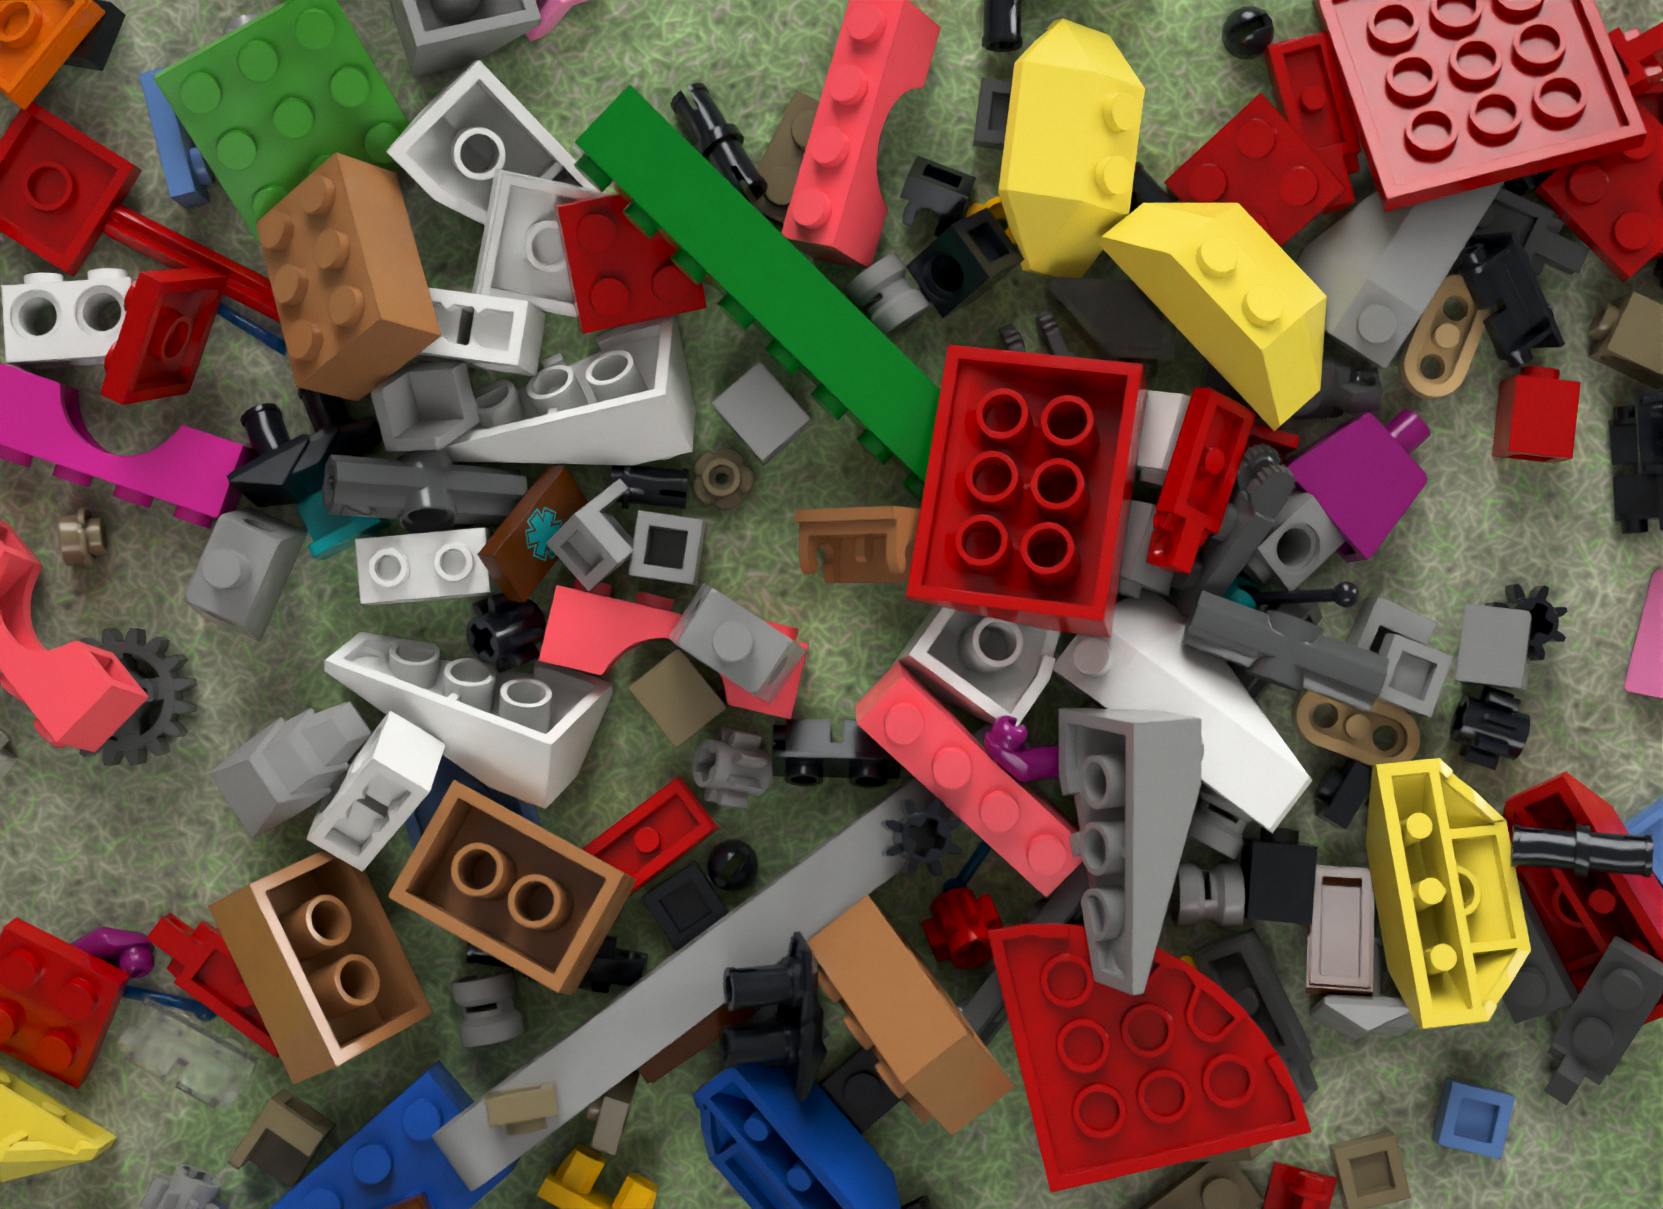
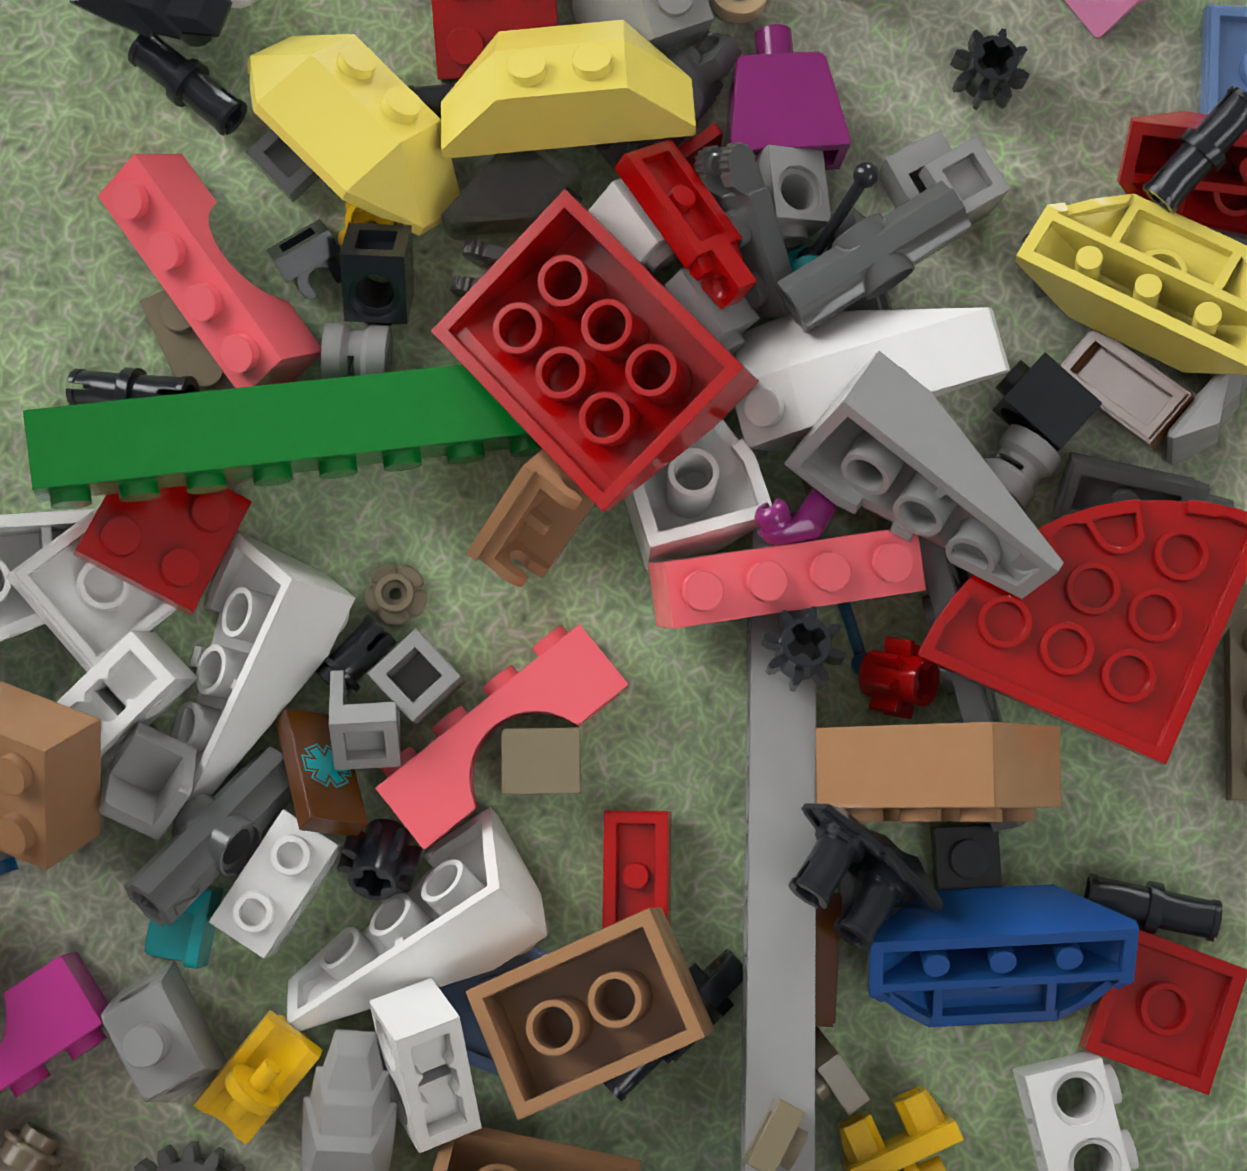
camera: 50 degrees left, 5 degrees down
(270, 669) = (259, 1076): none -> yellow hips
(295, 468) = (115, 928): black connector -> none
(488, 1022) = (685, 1119): light grey wheel -> none
(685, 905) = (711, 886): black plate -> none
(732, 767) = (630, 762): light grey gear -> none
(736, 643) = (533, 675): light grey torso -> none
(743, 874) = (695, 829): black hinge -> none
(761, 413) = (369, 522): light grey panel -> none
(812, 755) = (668, 696): black hinge -> none
(1215, 829) = (975, 420): light grey wheel -> none
(1342, 793) = (1017, 303): black plate -> none
(1353, 730) = (972, 259): tan plate -> none
(1489, 727) = (1051, 155): black gear -> none
(1494, 647) = (992, 103): light grey panel -> none

